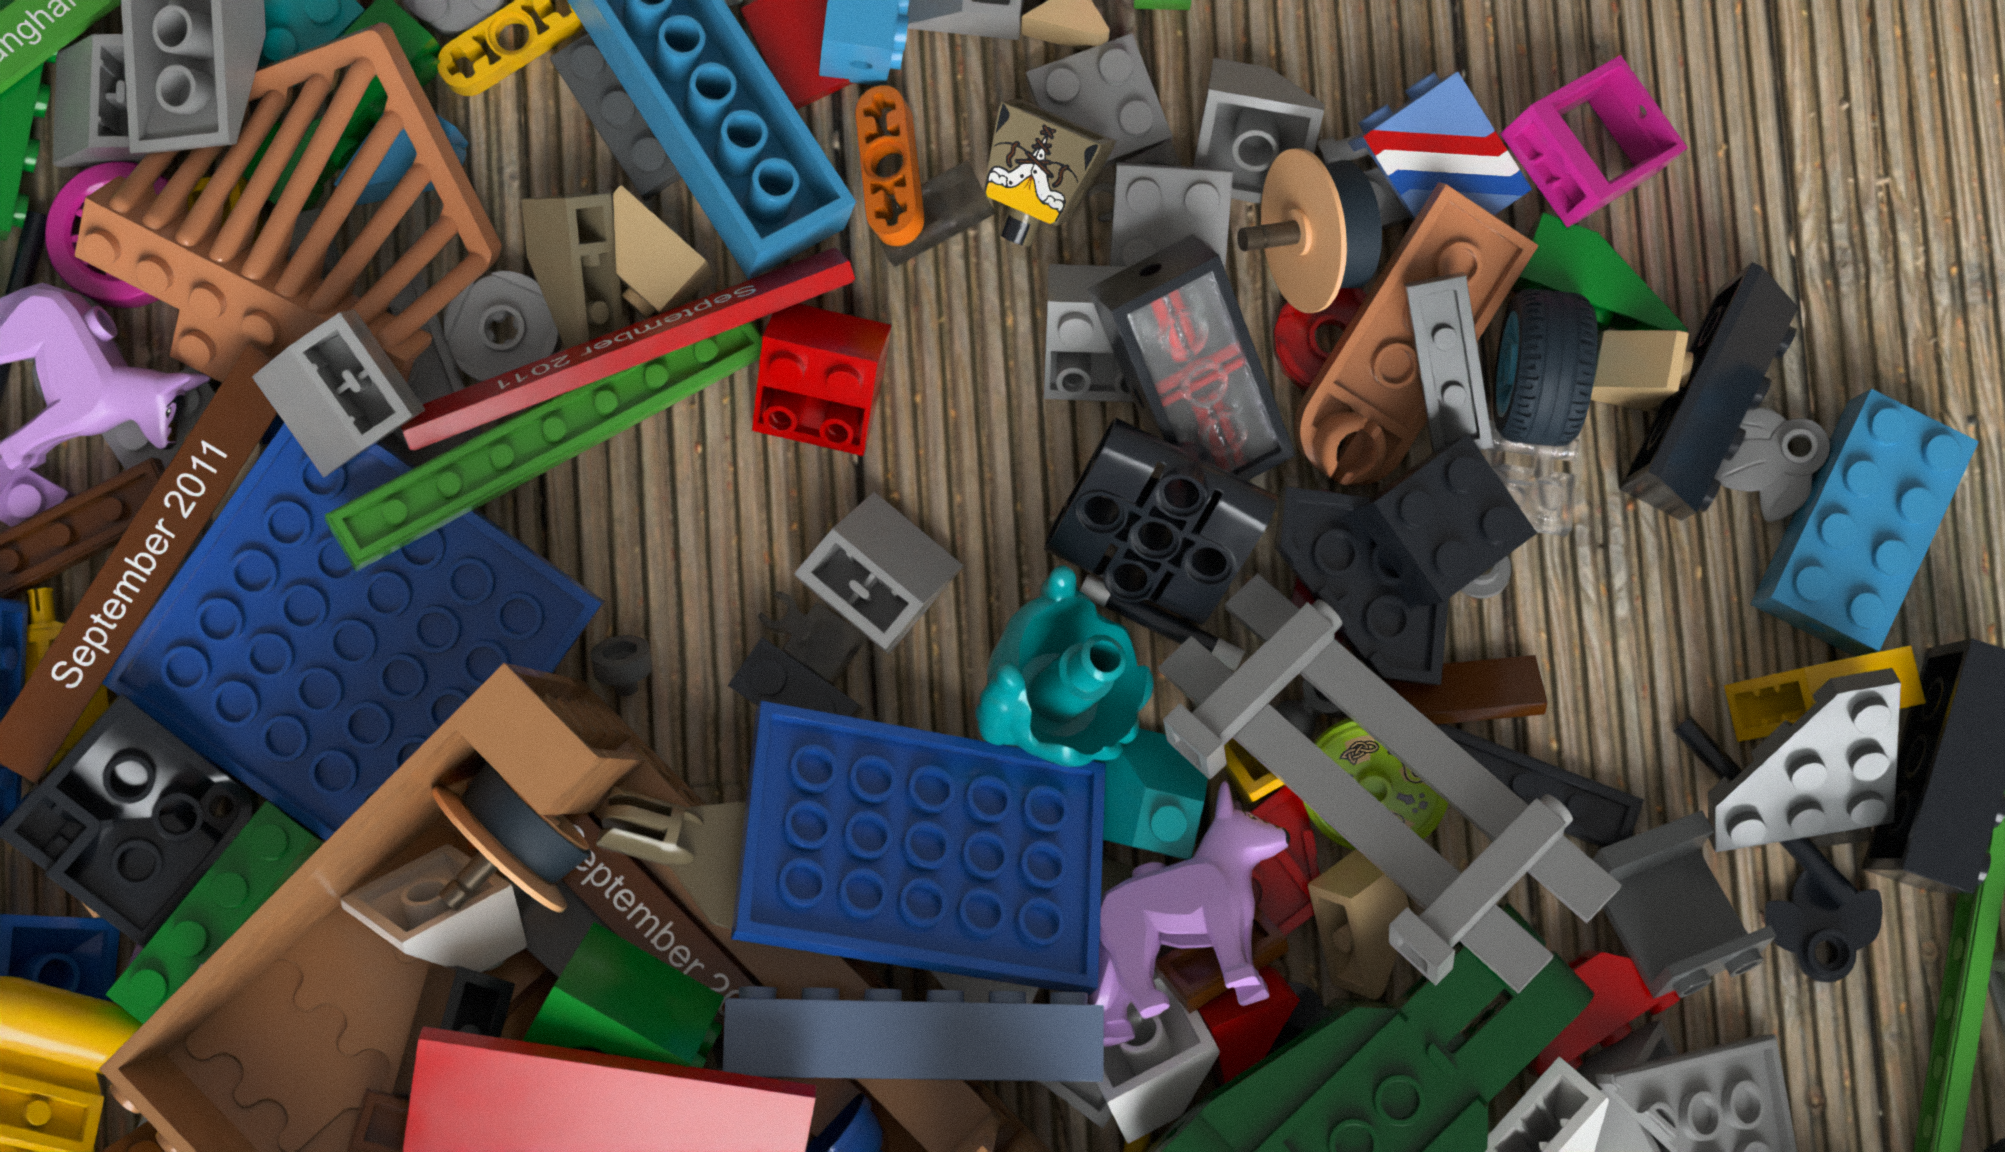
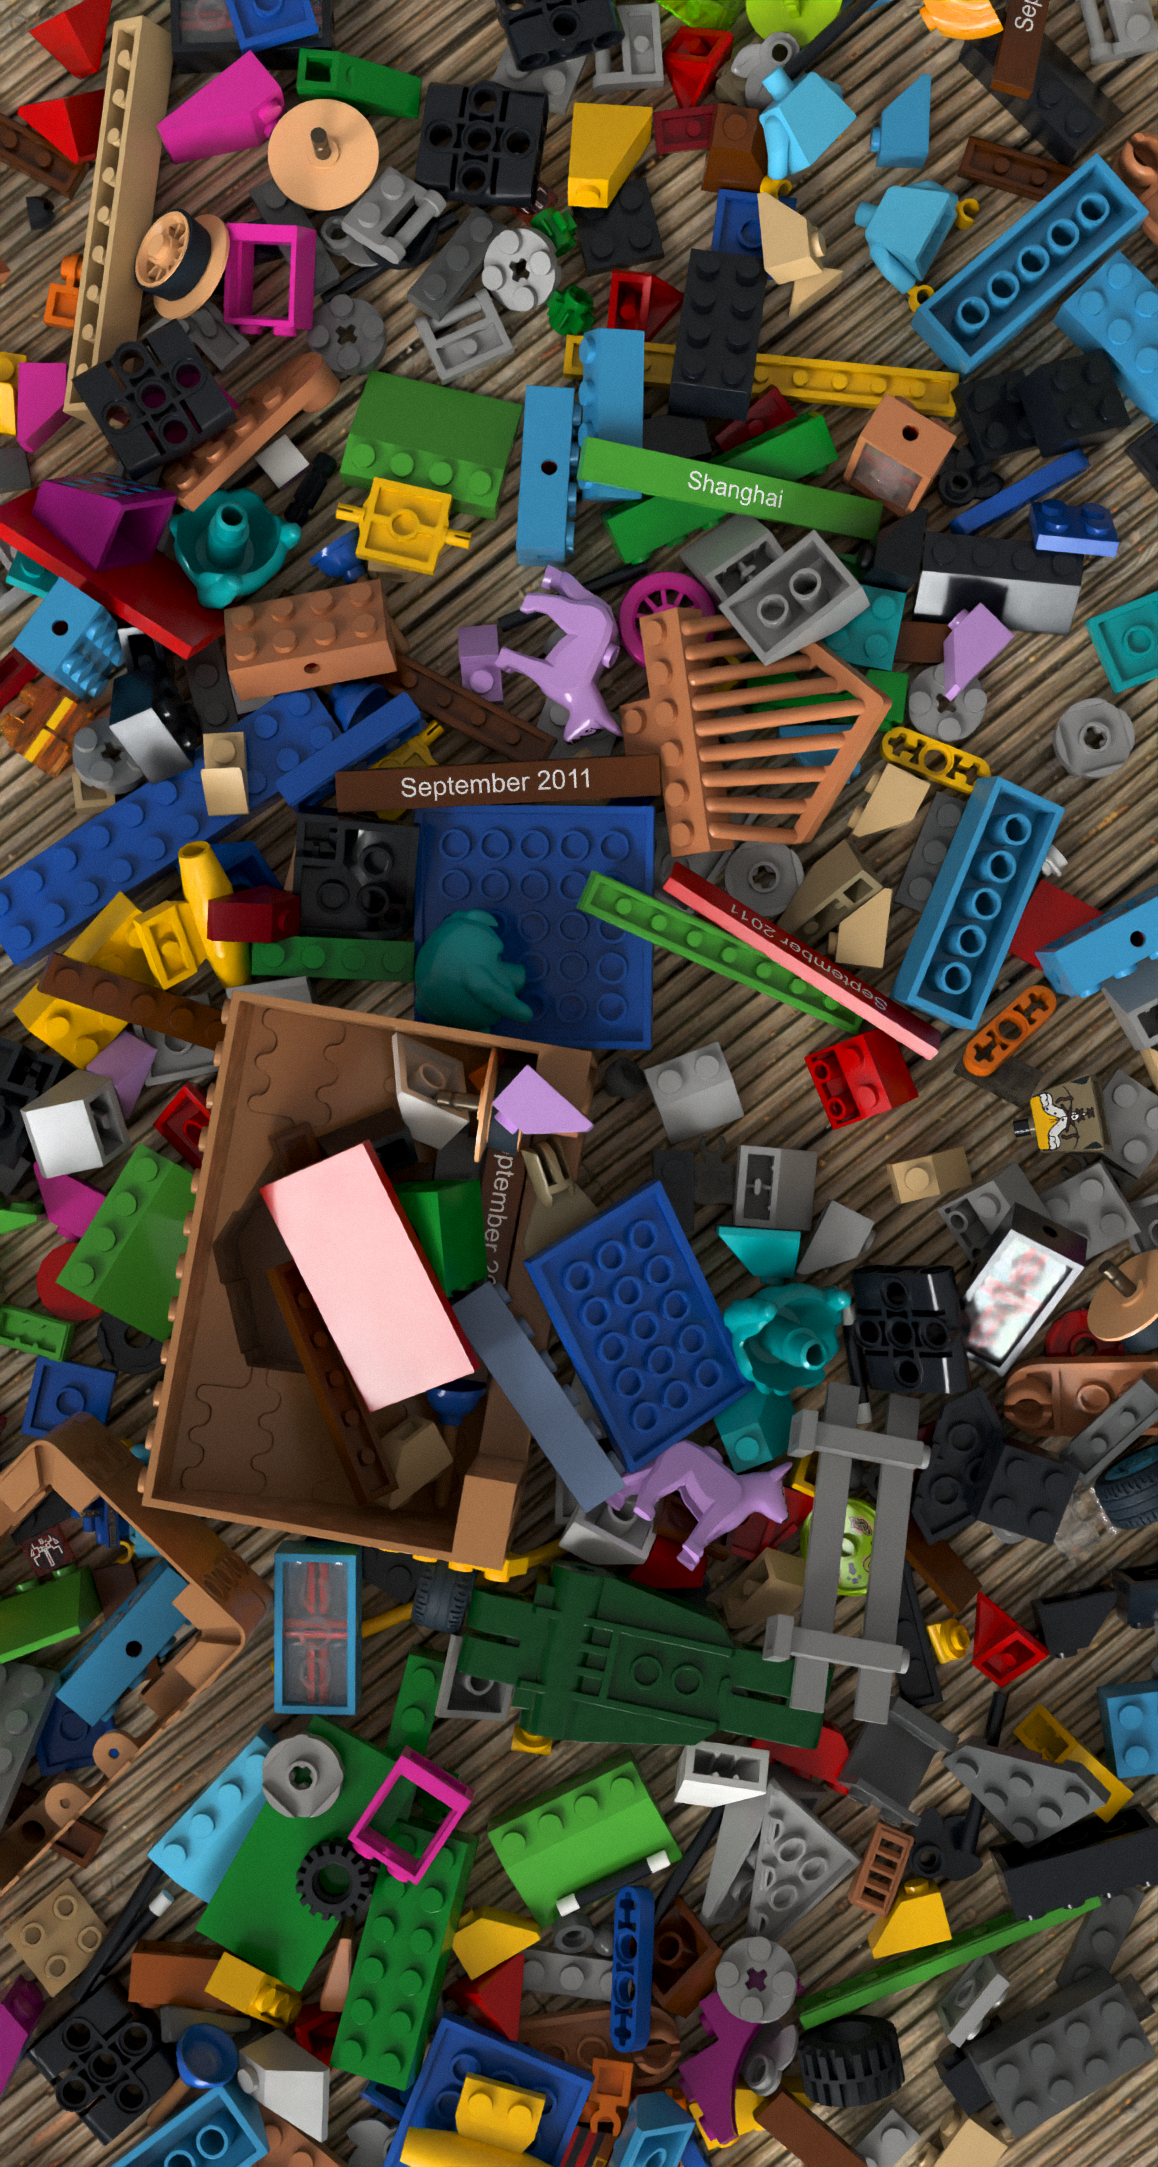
camera: 50 degrees right, 5 degrees up
(79, 978) = (254, 916): none -> dark red slope
(329, 762) = (463, 977): none -> teal piece
(337, 391) = (666, 829): light grey slope -> none
(518, 779) = (537, 1107): none -> lavender slope
(526, 122) = (891, 803): none -> tan slope
(697, 589) = (694, 1093): none -> light grey slope
(940, 637) = (763, 1250): none -> teal slope
(992, 540) = (835, 1238): none -> light grey slope
(993, 378) = (929, 1174): none -> tan slope
(1572, 741) = (948, 1639): none -> yellow plate
(1622, 680) = (1002, 1644): none -> red slope
(1647, 575) = (1072, 1618): none -> black slope
(1833, 1028) = (861, 1879): none -> nougat slope
(1888, 1026) = (913, 1920): none -> yellow slope

